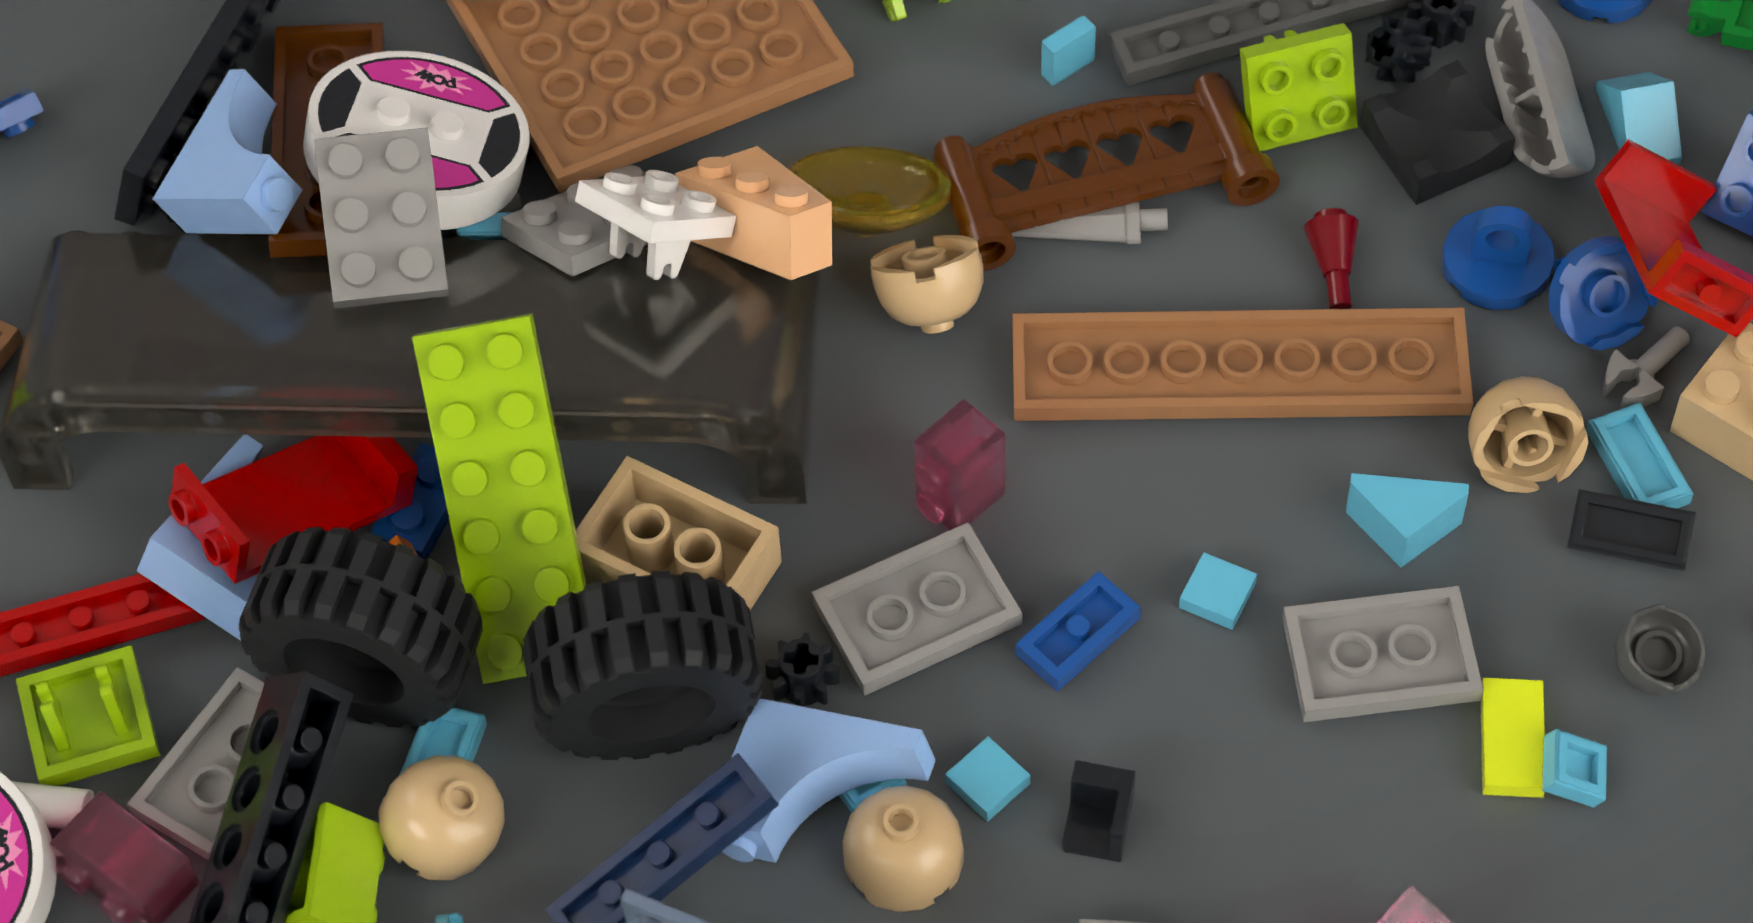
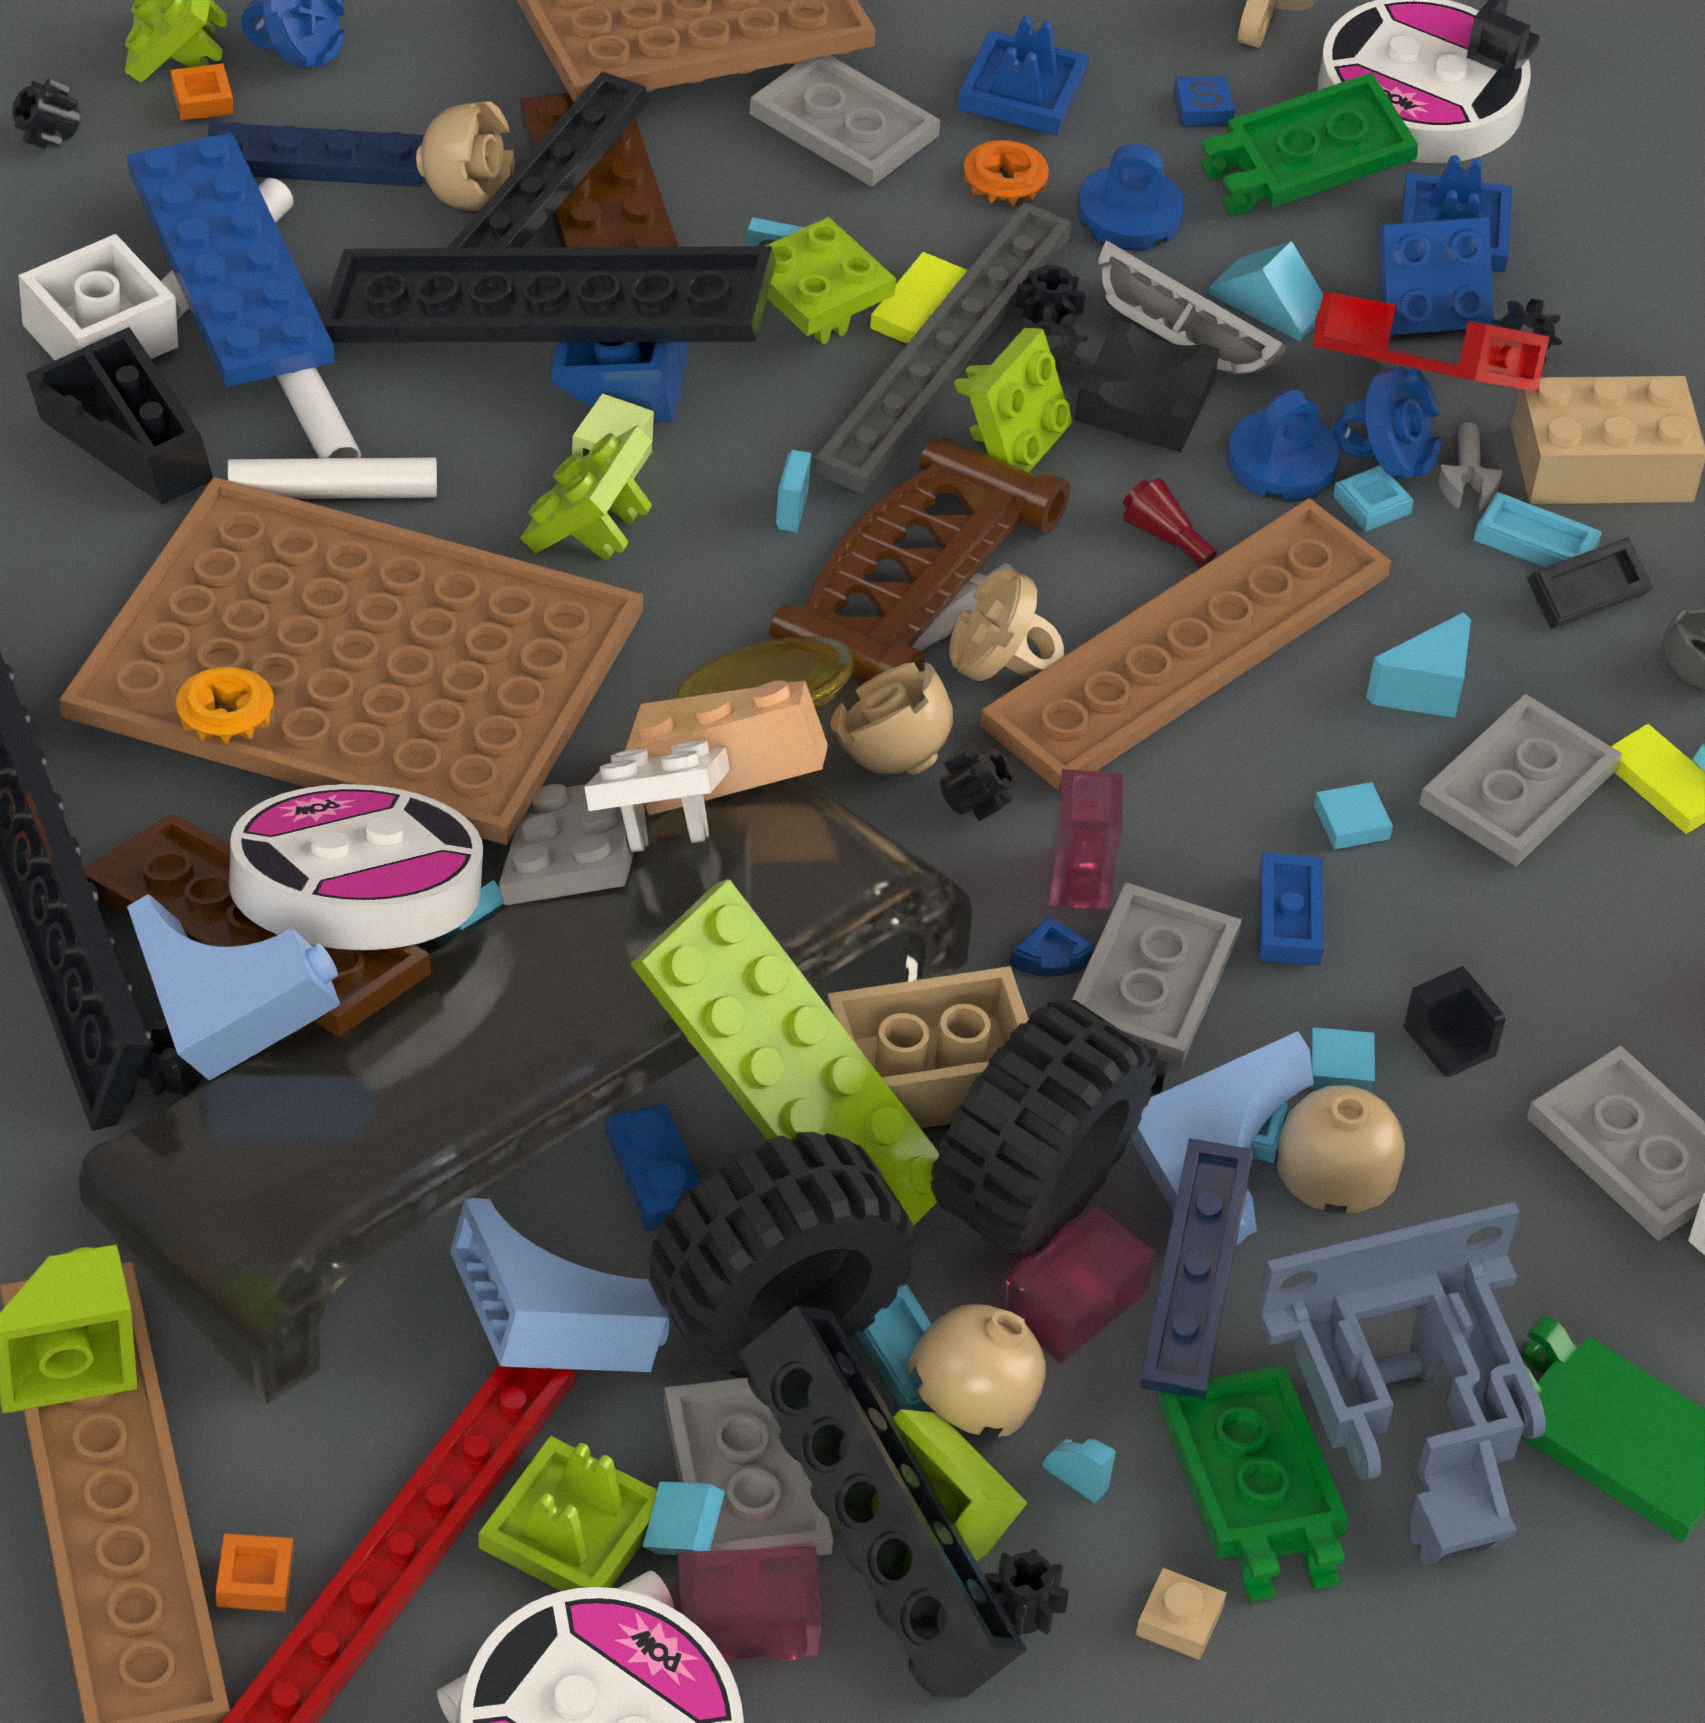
camera: 50 degrees left, 10 degrees down
(138, 771) = (683, 1518): none -> medium azure tile
(301, 487) = (586, 1207): red panel -> none
(381, 217) = (437, 924): light grey plate -> none
(590, 803) = (1079, 1282): none -> clear pink brick
(869, 535) = (1052, 950): none -> blue tile
(947, 367) = (977, 781): none -> black gear
(1089, 259) = (999, 628): none -> tan tile
(1526, 434) = (1455, 555): tan cylinder -> none
(1532, 343) = (1373, 498): none -> medium azure tile

